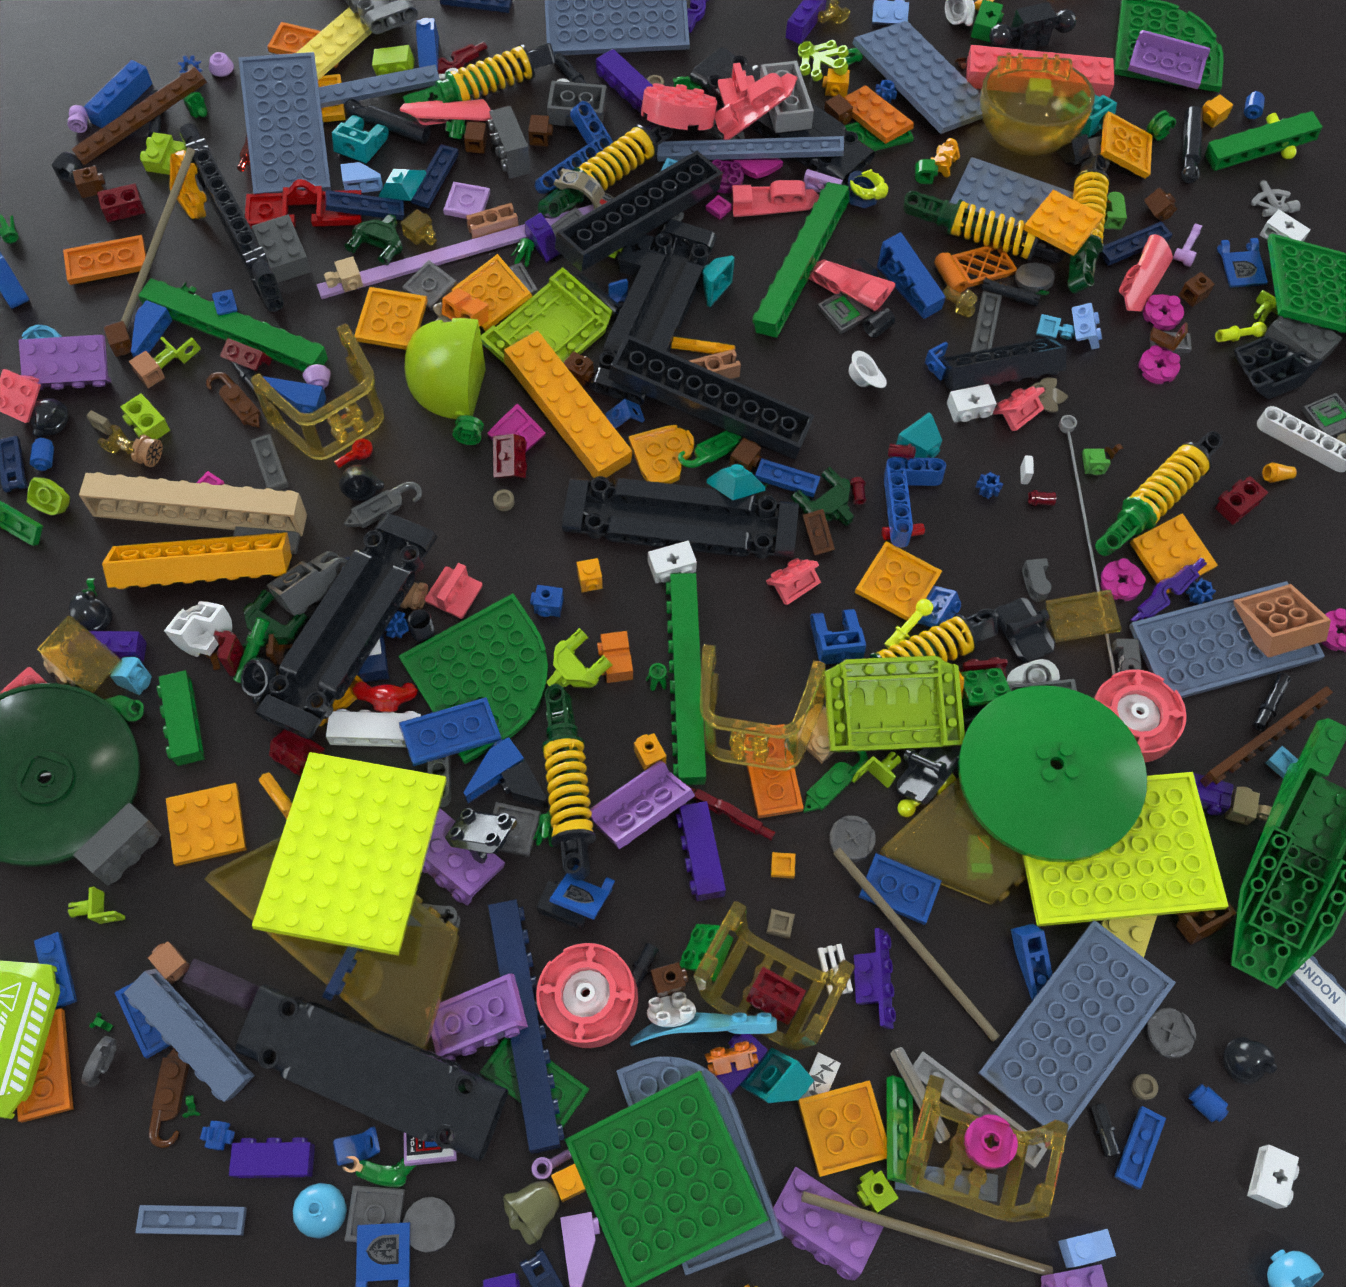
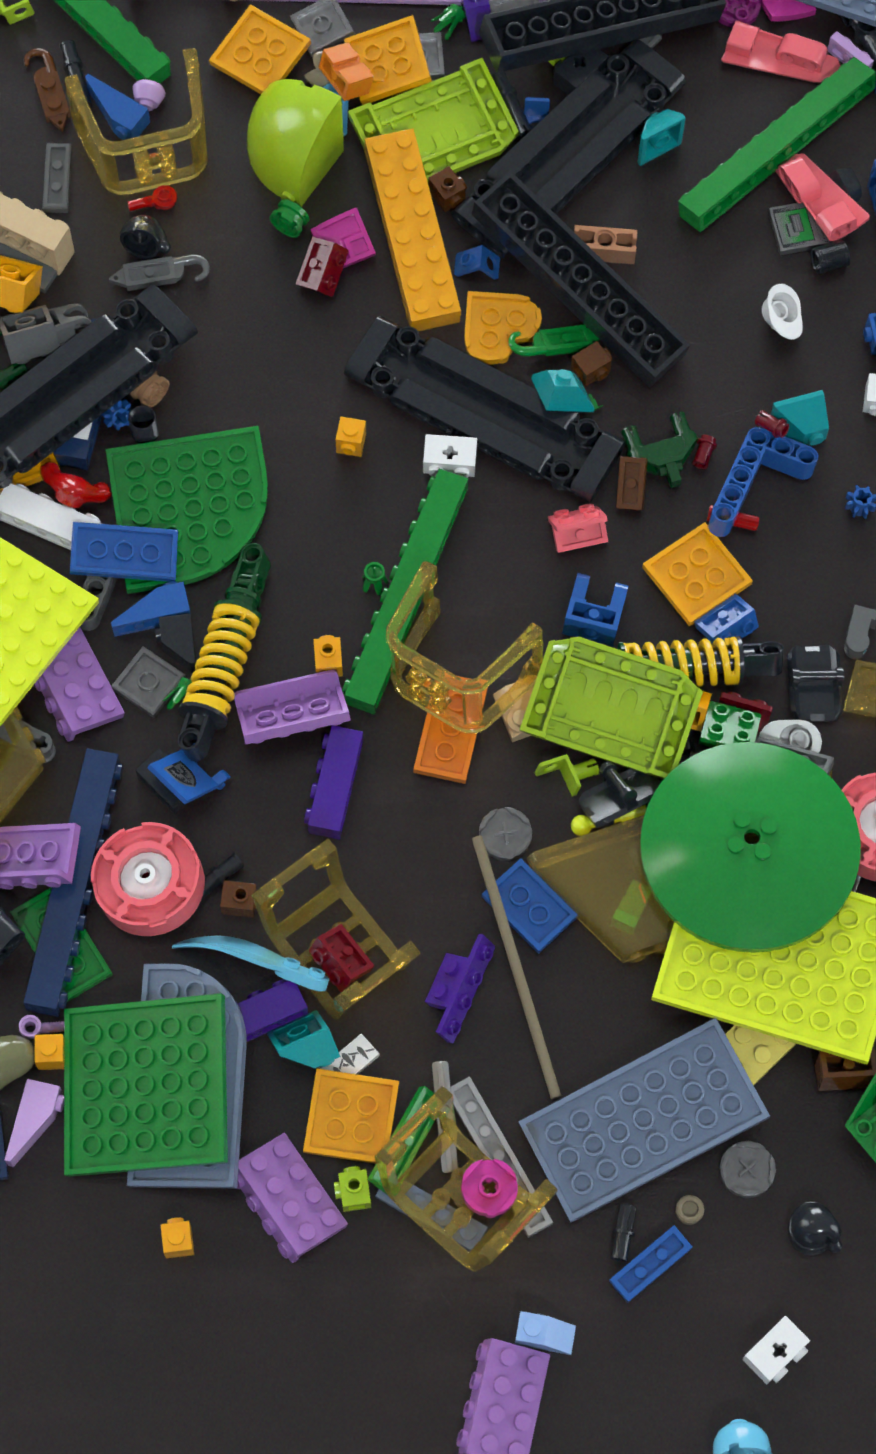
camera: 25 degrees right, 5 degrees up
(244, 355) = (77, 40): dark red bracket -> none
(454, 591) = (196, 399): coral bracket -> none
(480, 832) = (109, 670): shield -> none
(503, 500) = (296, 315): dark tan tile -> none
(547, 601) = (292, 448): blue brick -> none
(570, 669) = (283, 531): lime connector -> none
(616, 650) = (339, 540): orange brick -> none
(671, 1010) = (228, 929): white dish -> none
(698, 945) = (298, 889): green bracket -> none
(700, 346) = (606, 211): light orange axle -> none
(718, 207) = (709, 42): dark pink tile -> none
(736, 816) = (389, 760): dark red piece -> none
(740, 1054) = (275, 999): orange hinge -> none
(780, 923) = (385, 890): dark tan tile -> none
(783, 865) = (417, 832): light orange tile -> none
(787, 477) = (628, 406): blue plate -> none
(830, 950) = (424, 937): white tile -> none
(832, 784) = (510, 768): green plate -> none
(923, 608) = (706, 614): neon yellow pin -> none
(925, 1233) = (383, 1248): dark tan piece -> none
(1032, 956) = (635, 1029): blue slope -> none
(1209, 1103) = (747, 1252): blue brick -> none

